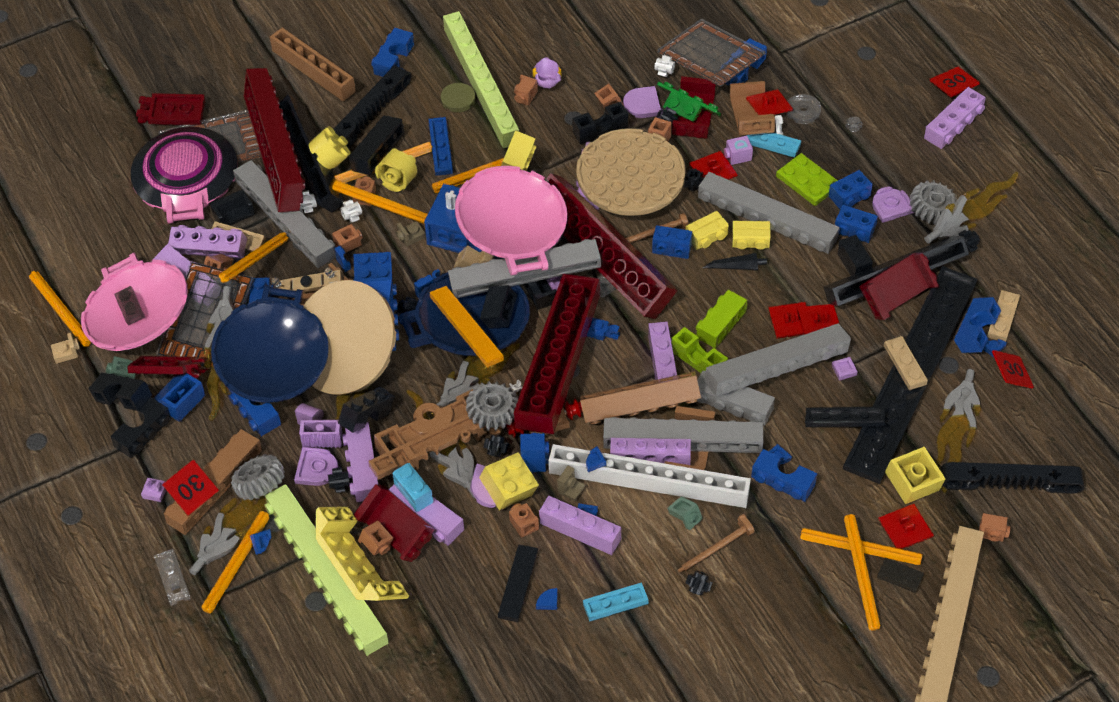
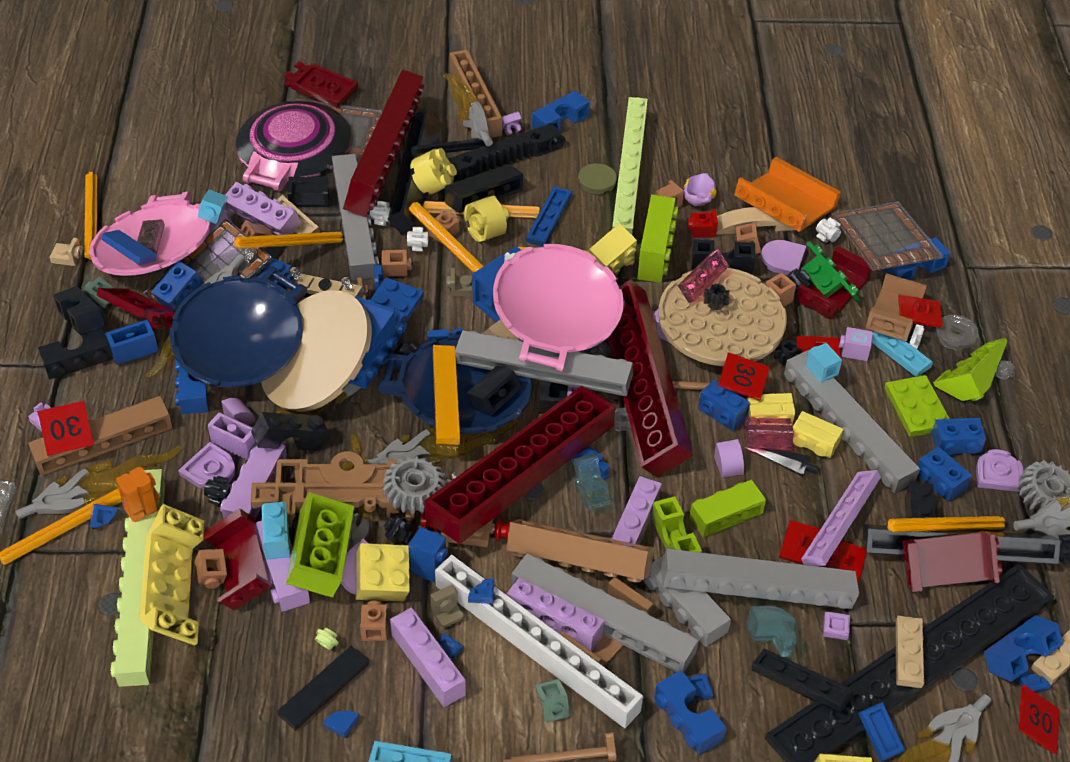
camera: 25 degrees right, 5 degrees down
(122, 321) = (129, 247): none -> blue tile
(175, 256) = (212, 206): none -> medium azure brick
(188, 336) = (177, 285): none -> blue brick
(257, 477) = (140, 449): light grey gear -> none
(290, 509) = (138, 493): none -> orange brick
(321, 81) = (472, 111): none -> piece
(327, 120) = (448, 147): none -> black axle
(357, 75) = (511, 121): none -> lavender tile
(453, 482) = (320, 545): none -> lime brick
(497, 547) = (326, 638): none -> yellowish green plate
(540, 125) = (657, 239): none -> lime brick
(566, 101) = (703, 224): none -> red brick
(585, 89) = (730, 220): none -> tan slope
(601, 146) = (703, 276): none -> clear pink plate
(613, 347) = (589, 484): none -> clear light blue brick
(618, 48) = (789, 195): none -> orange panel
(621, 158) = (716, 296): none -> black gear
(677, 212) = (743, 376): none -> red piece
(700, 281) = (729, 458): none -> lavender brick
(717, 249) = (768, 433): none -> clear pink brick
(728, 176) = (823, 362): none -> medium azure brick
(804, 388) = (774, 625): none -> clear light blue brick
(806, 289) = (841, 518): none -> lavender plate
(835, 136) = (973, 374): none -> lime wedge
(881, 260) = (946, 524): none -> light orange axle
(917, 426) = (881, 731): none -> blue tile

